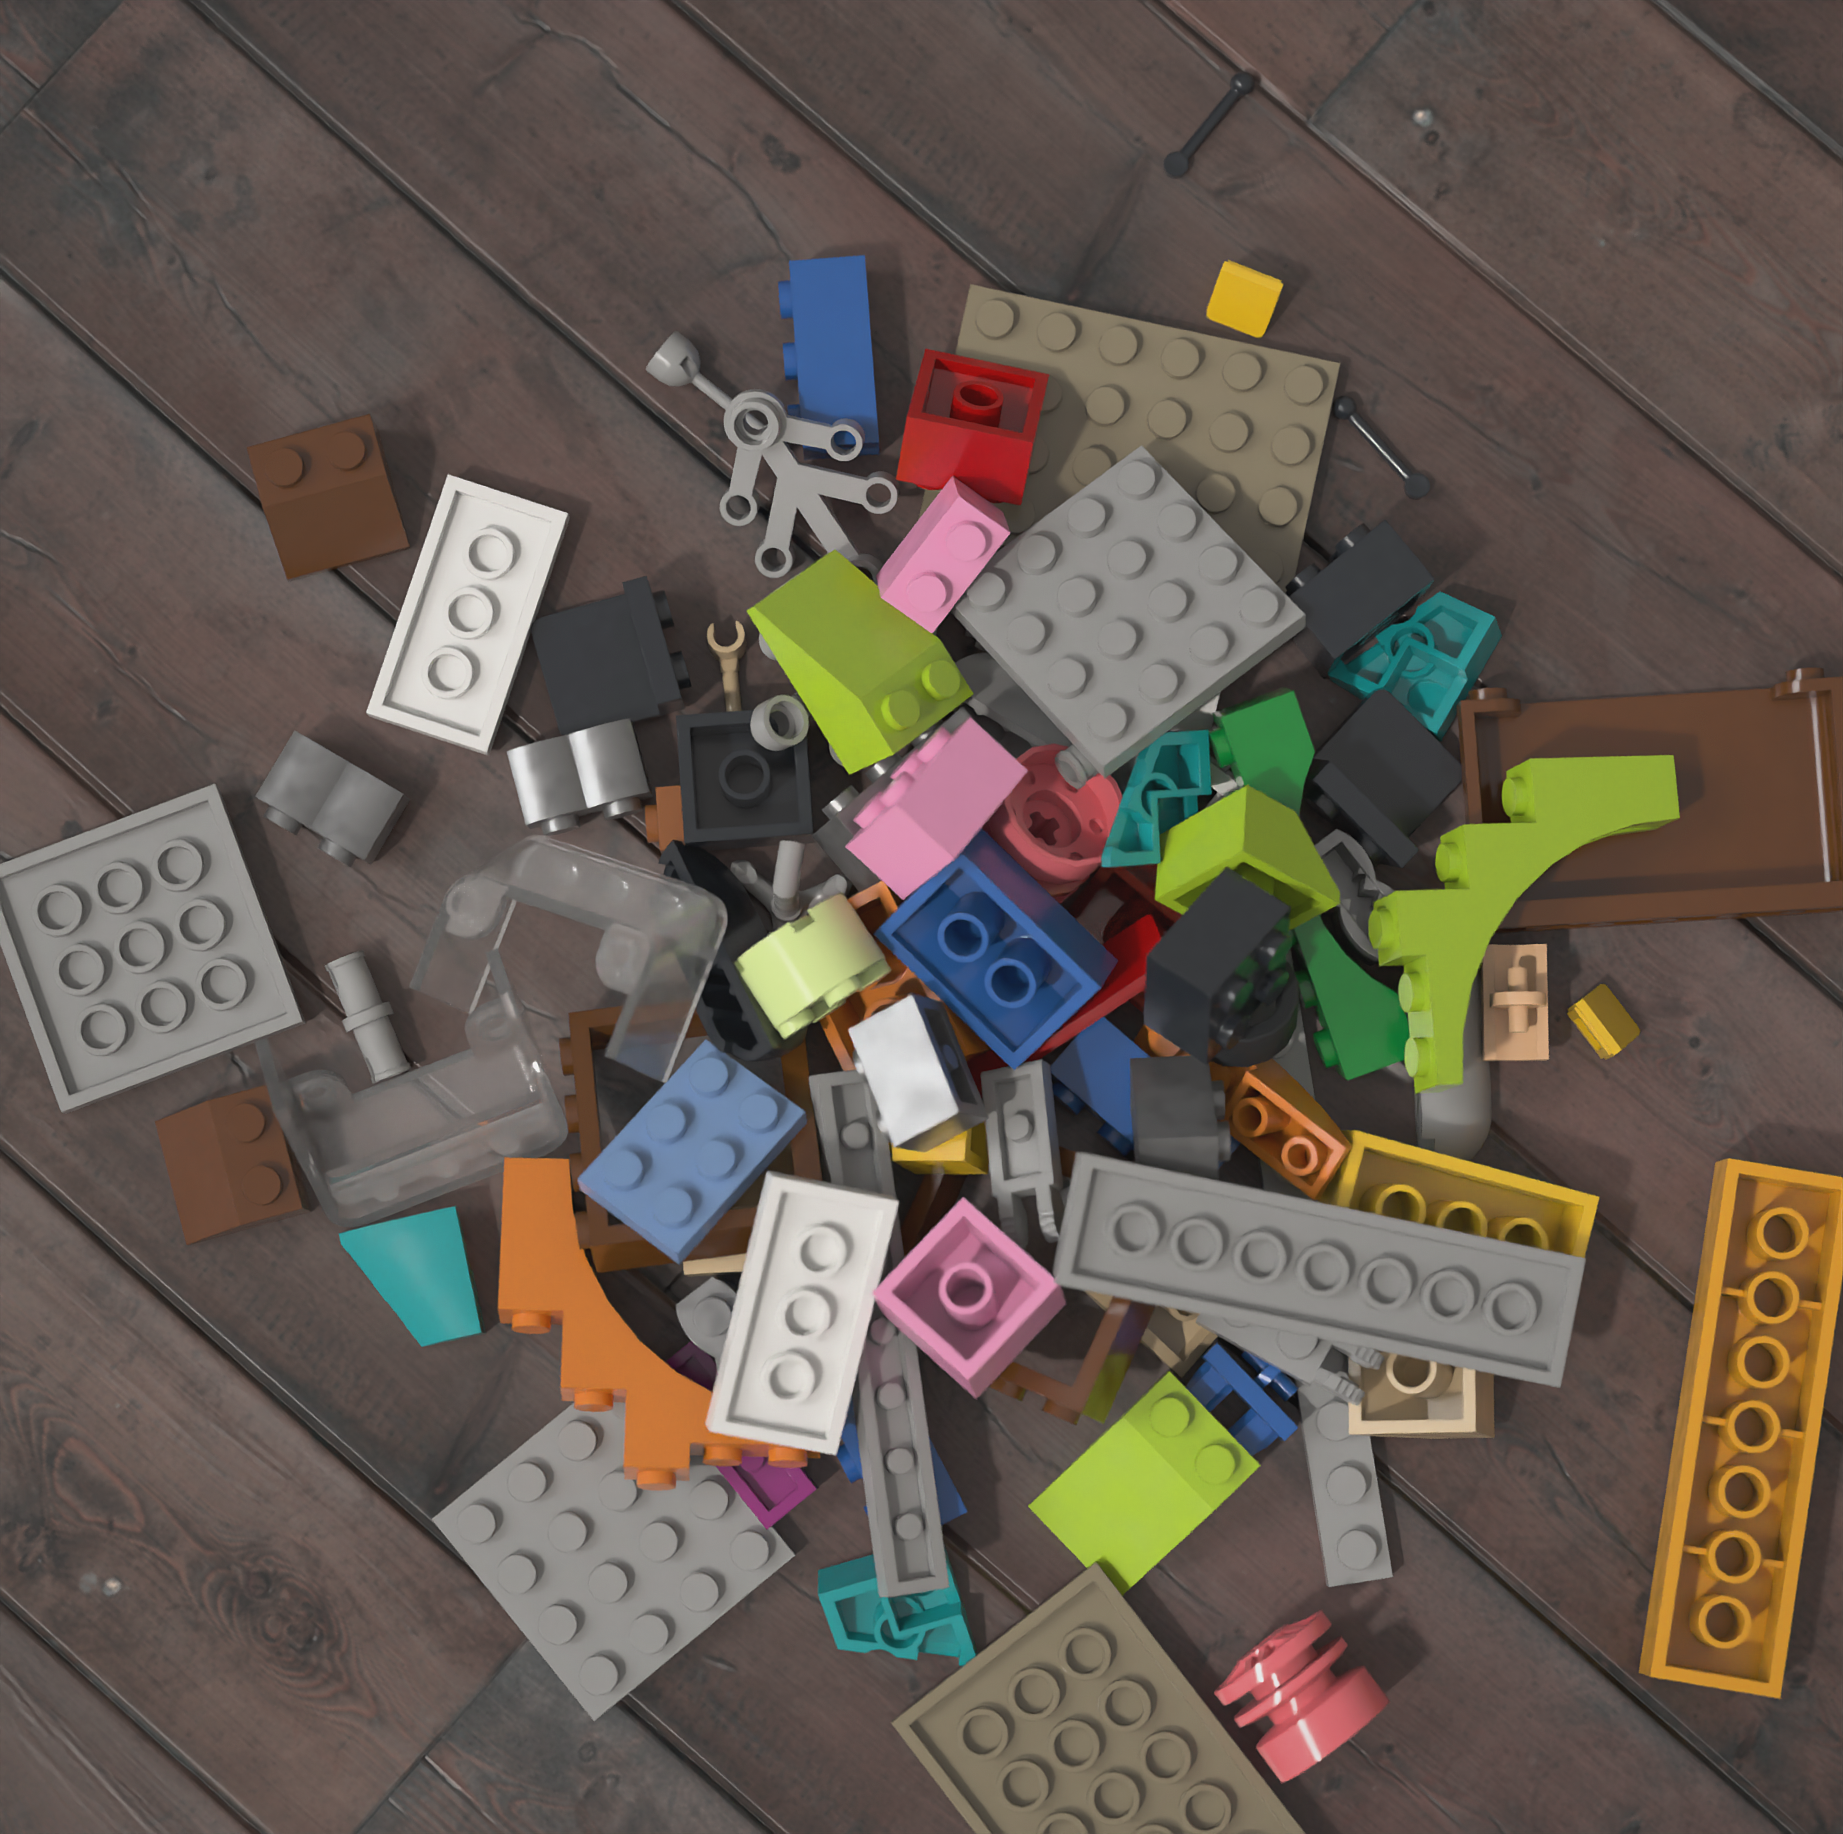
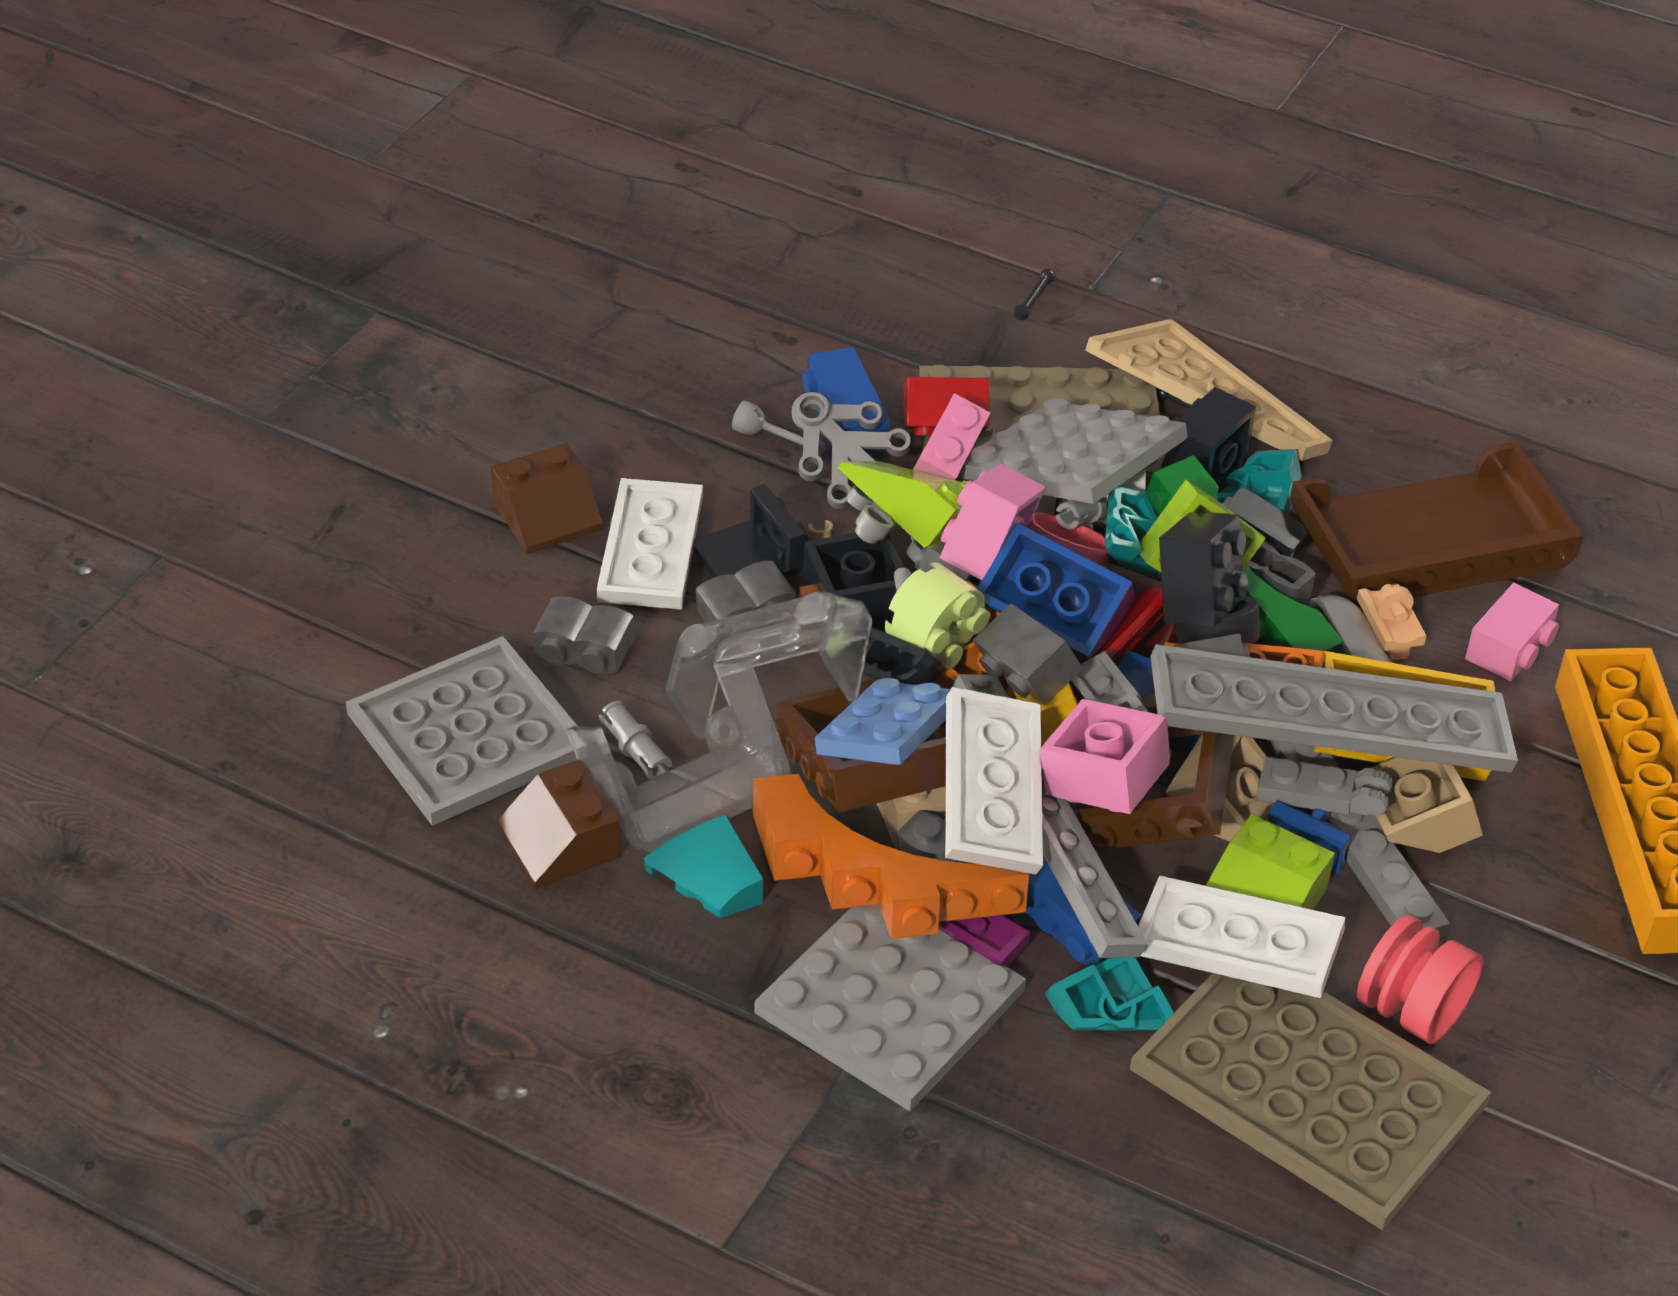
camera: 15 degrees left, 40 degrees down
(1085, 1573) = (1241, 936): none -> white plate
(1244, 299) = (1076, 344): yellow slope -> none
(1395, 397) = (1189, 369): none -> tan wing
(1485, 869) = (1348, 532): lime arch -> none
(1603, 1022) = (1448, 628): yellow slope -> none
(1689, 1058) = (1513, 632): none -> bright pink brick

